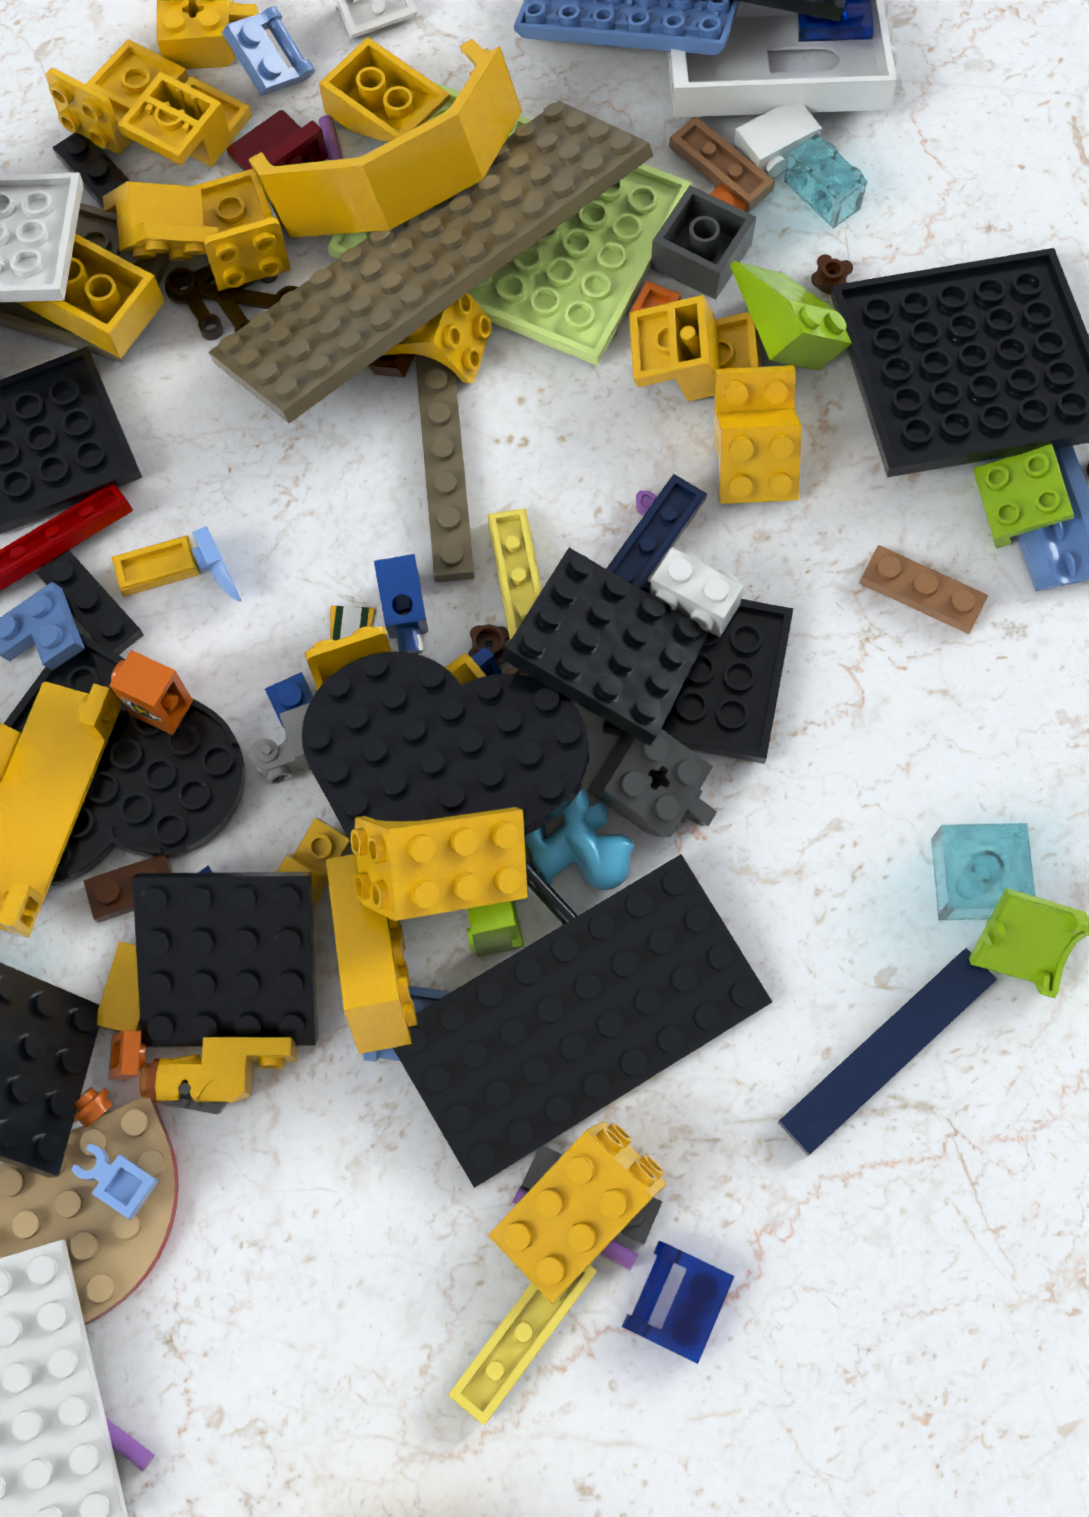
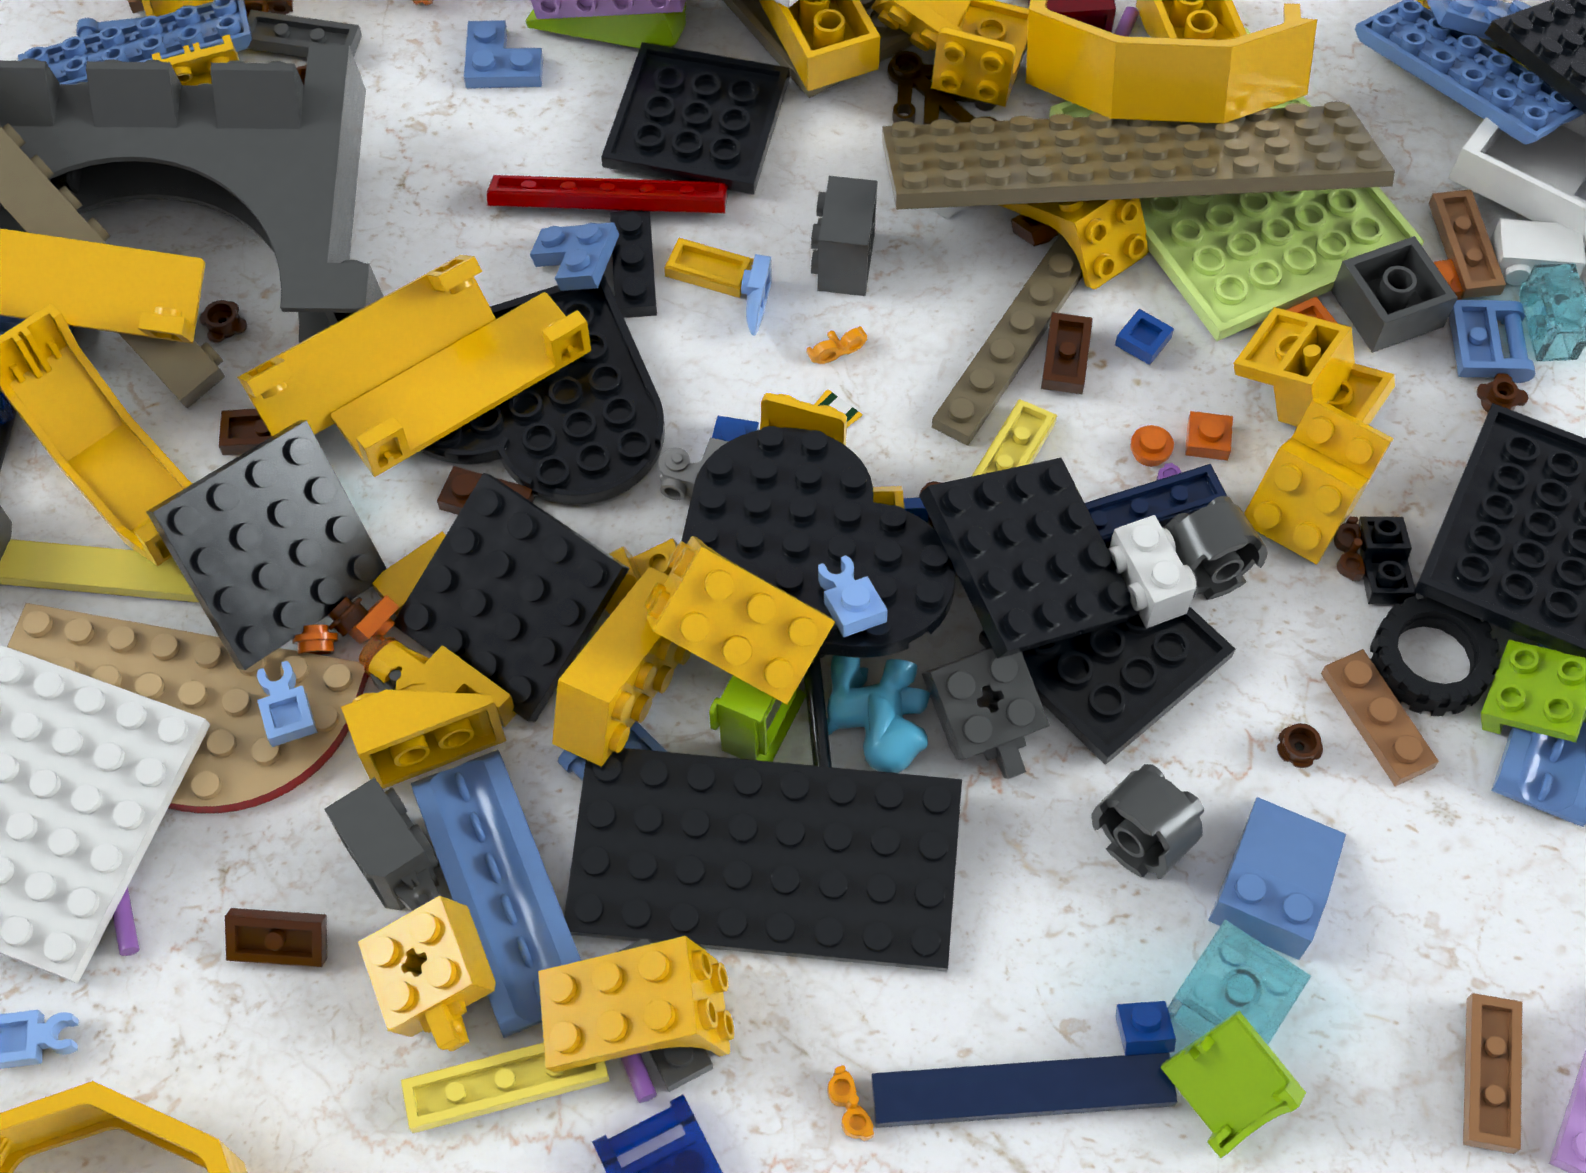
camera: 35 degrees right, 10 degrees down
(101, 1067) = (347, 615): none -> reddish brown plate
(151, 691) = (618, 349): orange brick -> none
(236, 1126) = (419, 731): none -> yellow slope
(252, 467) = (844, 235): none -> dark grey brick
(259, 1363) = (276, 937): none -> reddish brown plate
(298, 1234) = (386, 846): none -> dark grey hinge
(312, 567) = (834, 348): none -> light orange piece
(395, 1189) = (501, 879): none -> medium blue plate
(399, 592) = (887, 415): blue torso -> none
(427, 1310) = (428, 971): none -> yellow hinge
(495, 451) = (1067, 353): none -> reddish brown plate
(517, 783) = (850, 601): none -> light blue plate
(543, 398) = (1144, 336): none -> blue plate
(613, 484) = (1151, 445): none -> orange plate
(648, 448) = (1209, 435): none -> orange plate
(726, 535) = (1217, 546): none -> dark grey brick
(786, 240) = (1479, 343): none -> medium blue plate
(790, 319) = (1426, 404): lime slope -> none
(790, 1161) = (842, 1092): none -> light orange piece
(820, 482) = (1348, 541): none -> reddish brown piece
(834, 788) = (1149, 822): none -> dark grey brick
(842, 464) = (1385, 559): none -> black slope
(890, 641) = (1303, 735): none -> reddish brown plate
(923, 551) = (1417, 691): none -> black tyre
(937, 942) = (1145, 1028): none -> blue plate
(946, 762) = (1279, 878): none -> medium blue slope

